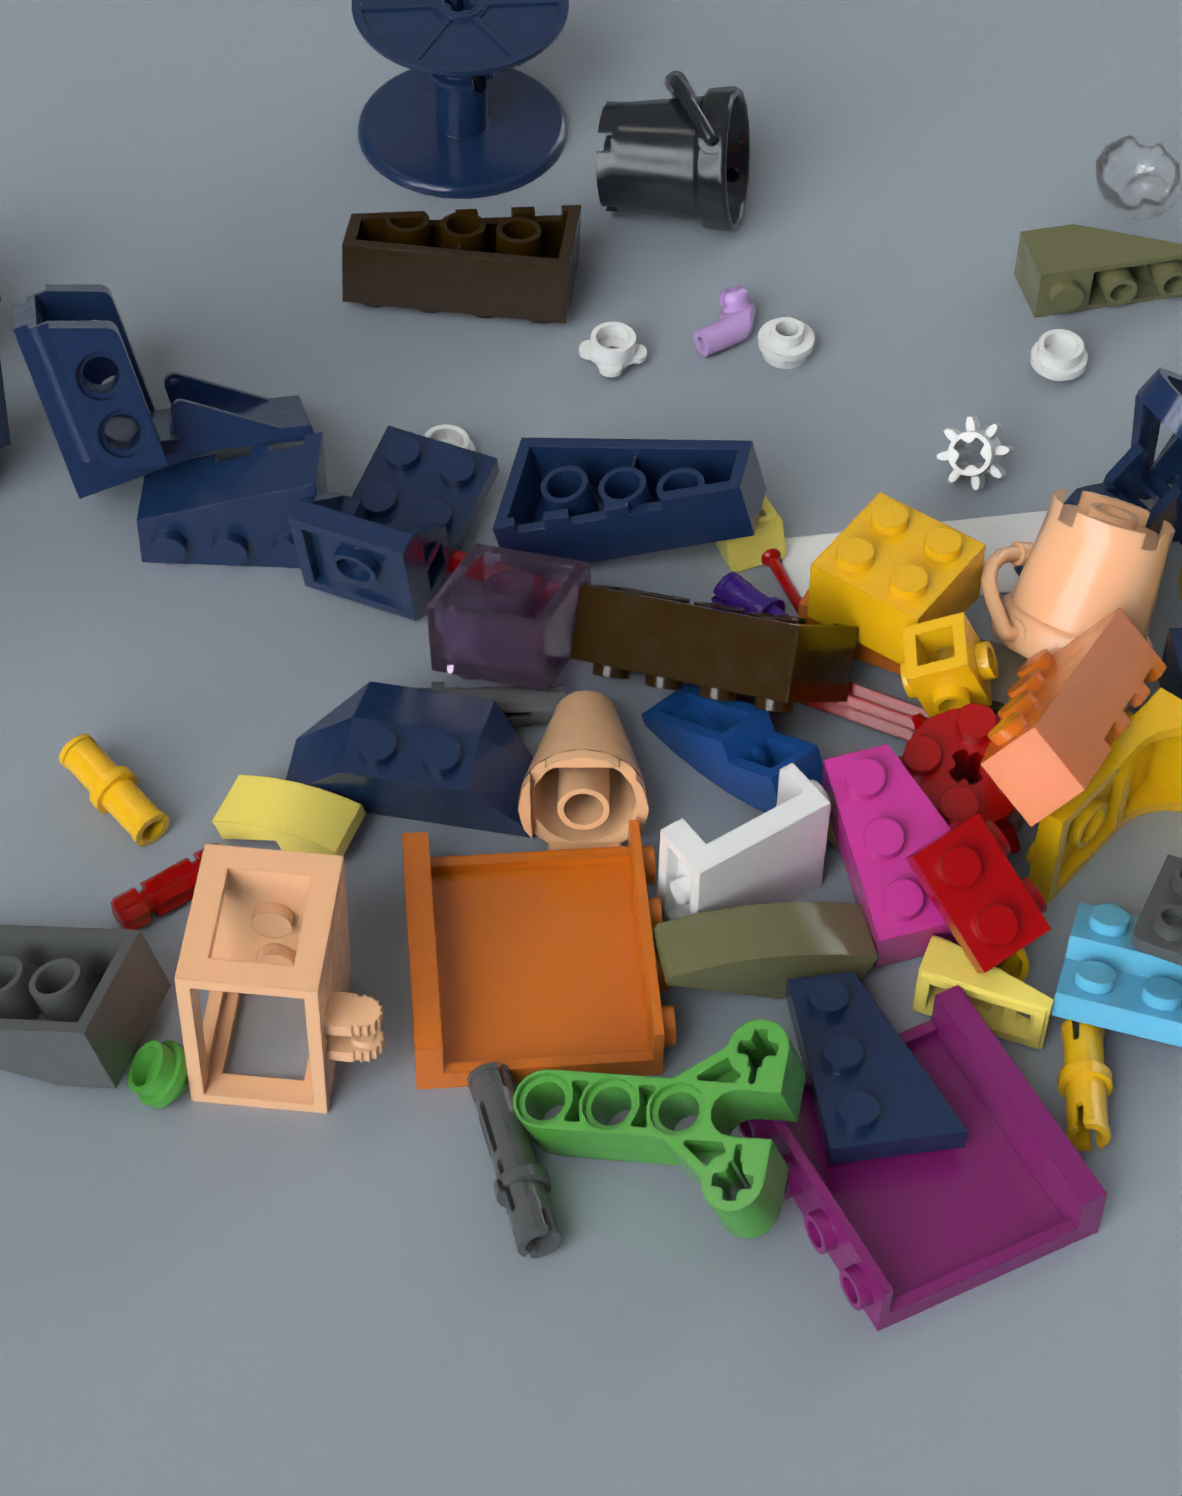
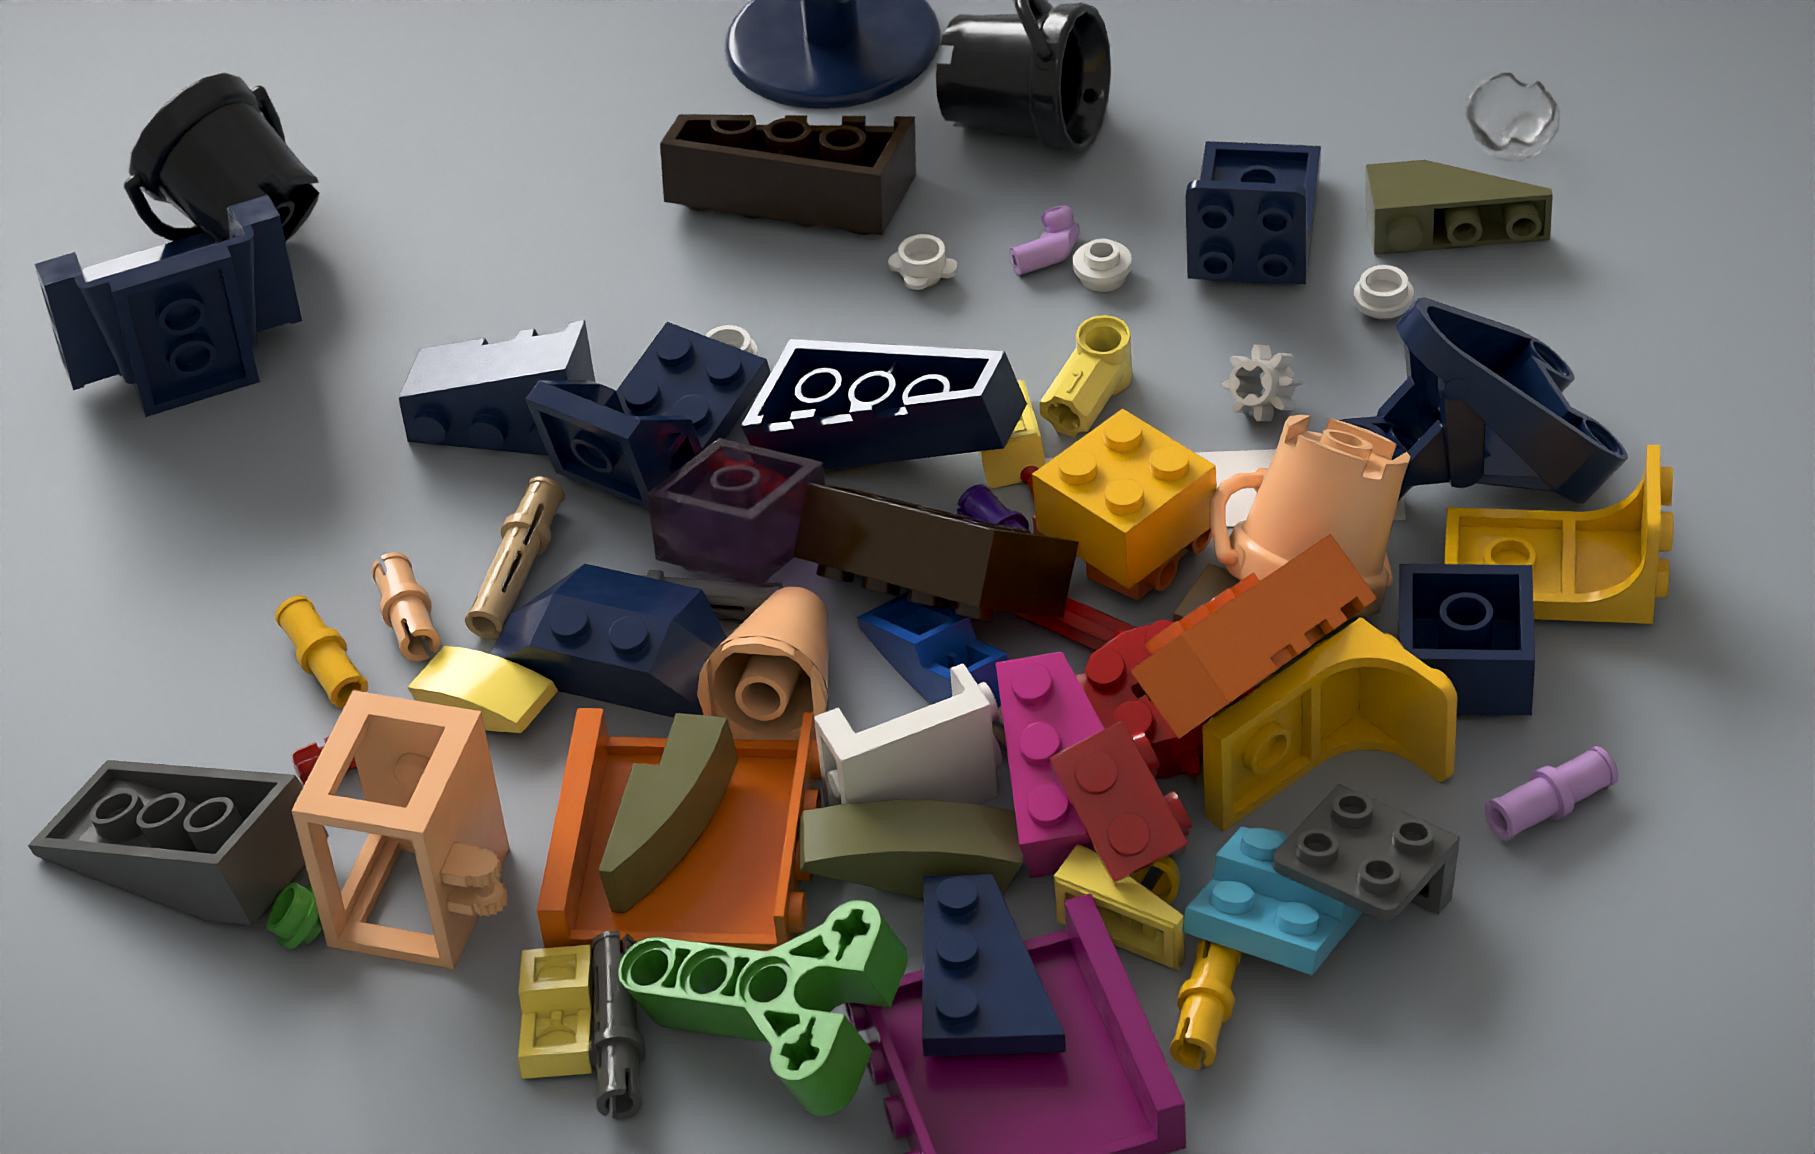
camera: 15 degrees right, 5 degrees down
(113, 428) = (371, 287): dark blue piece -> none
(189, 736) = (405, 606): none -> light nougat pin
(291, 656) = (534, 512): none -> tan pin
(448, 1151) = (556, 1011): none -> light yellow slope
(516, 928) = (667, 807): none -> olive slope
(807, 455) = (1091, 375): none -> light yellow piece
(922, 283) = (1252, 212): none -> dark blue bracket
(947, 664) = (1150, 579): yellow brick -> none

